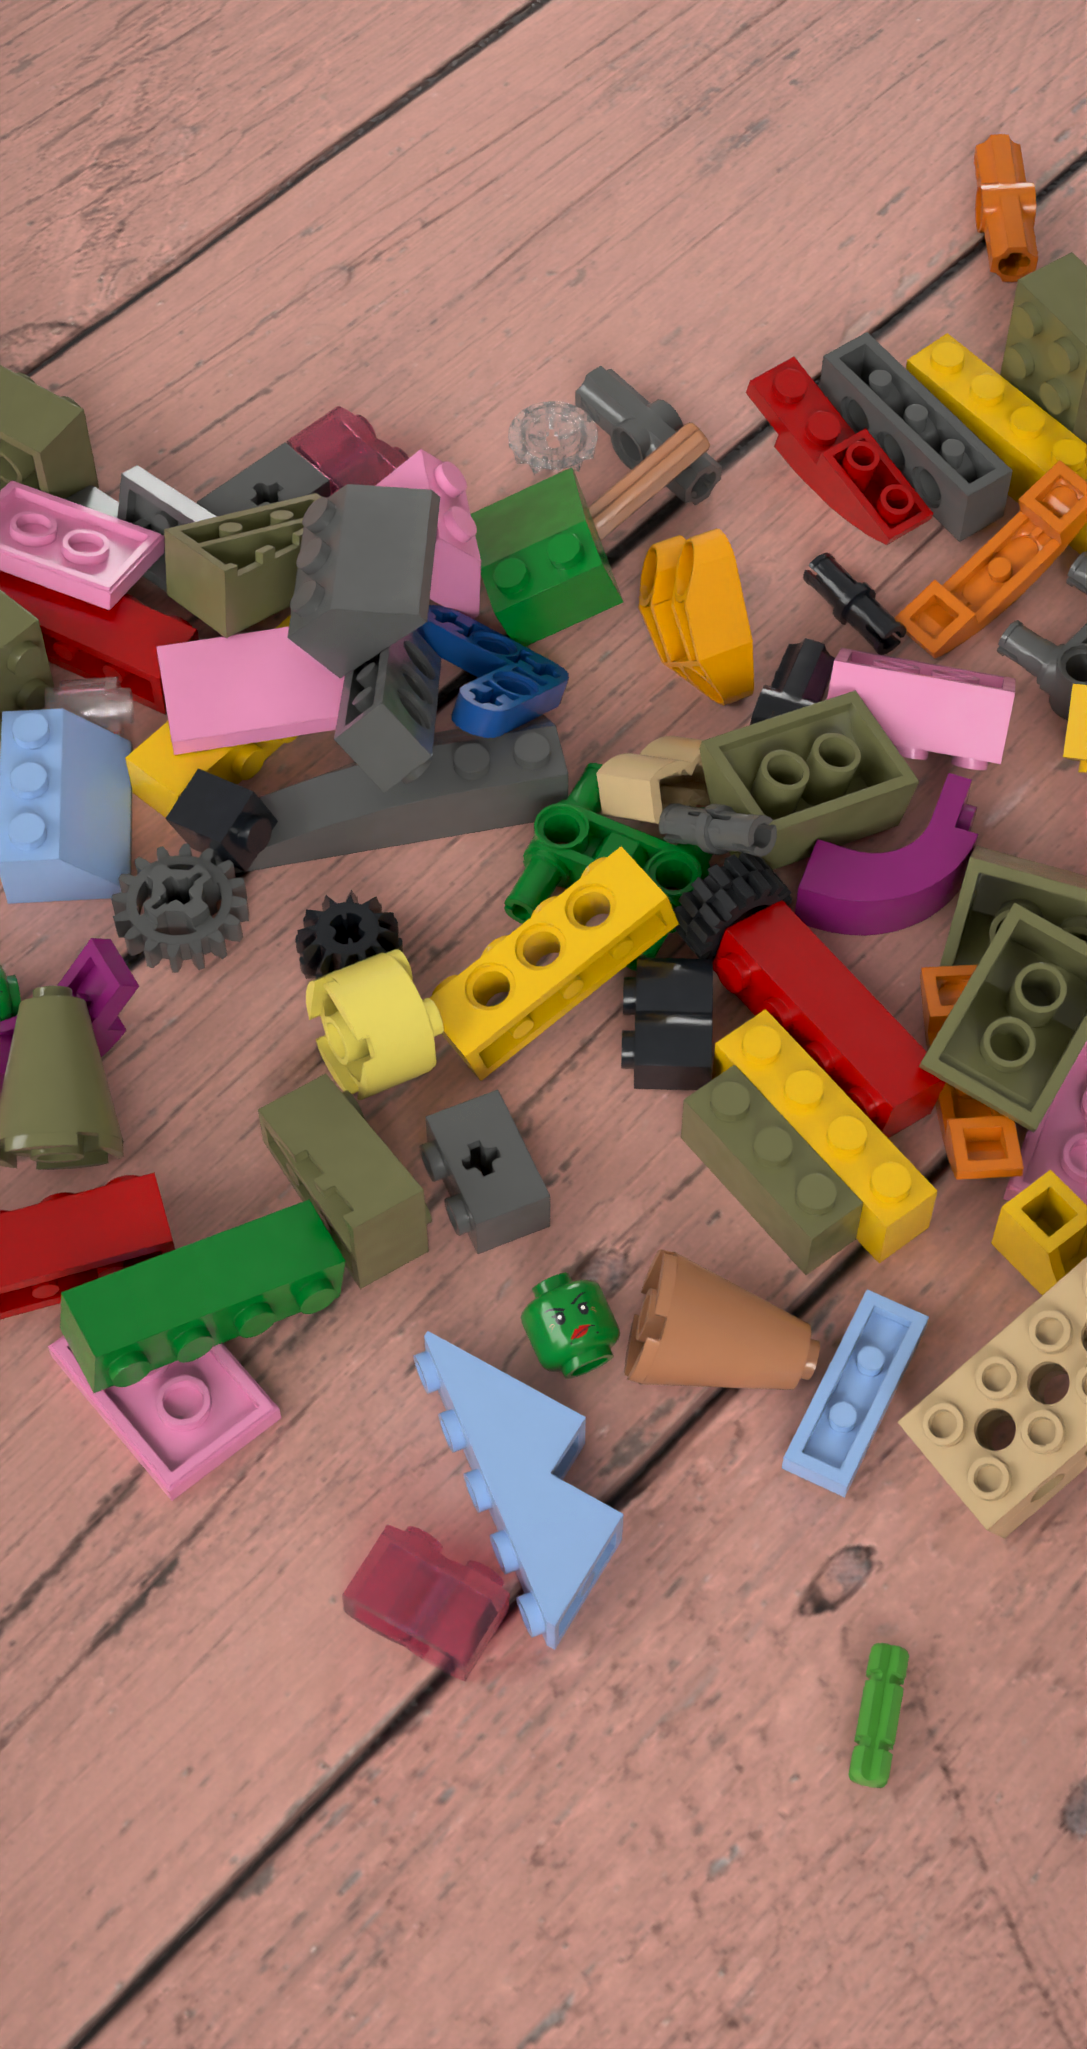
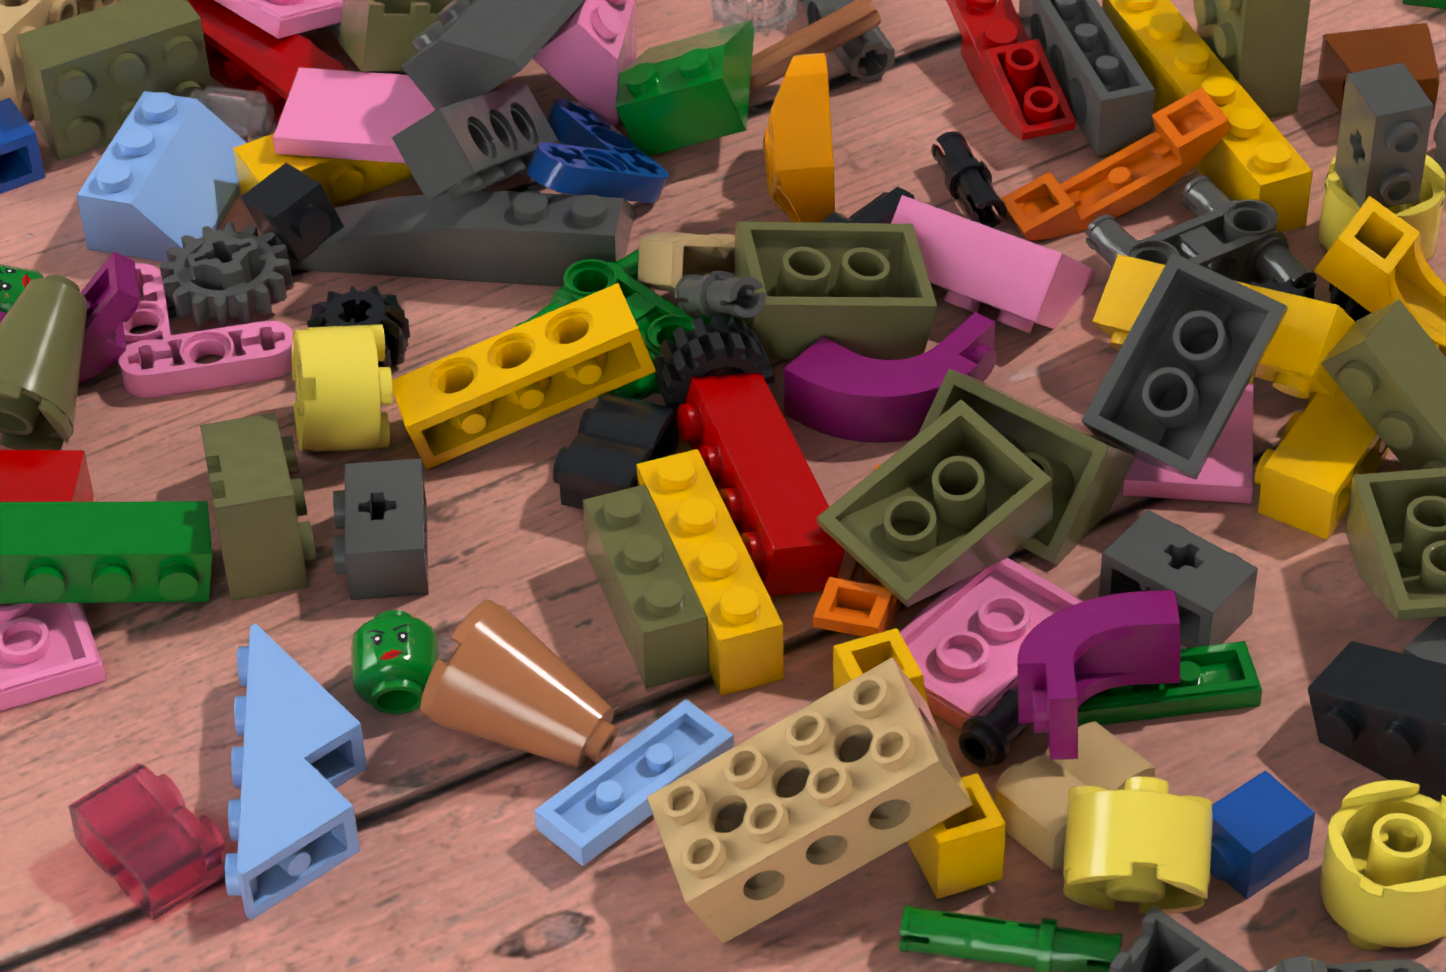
camera: 20 degrees right, 15 degrees down
(152, 1013) = (162, 349): none -> bright pink beam

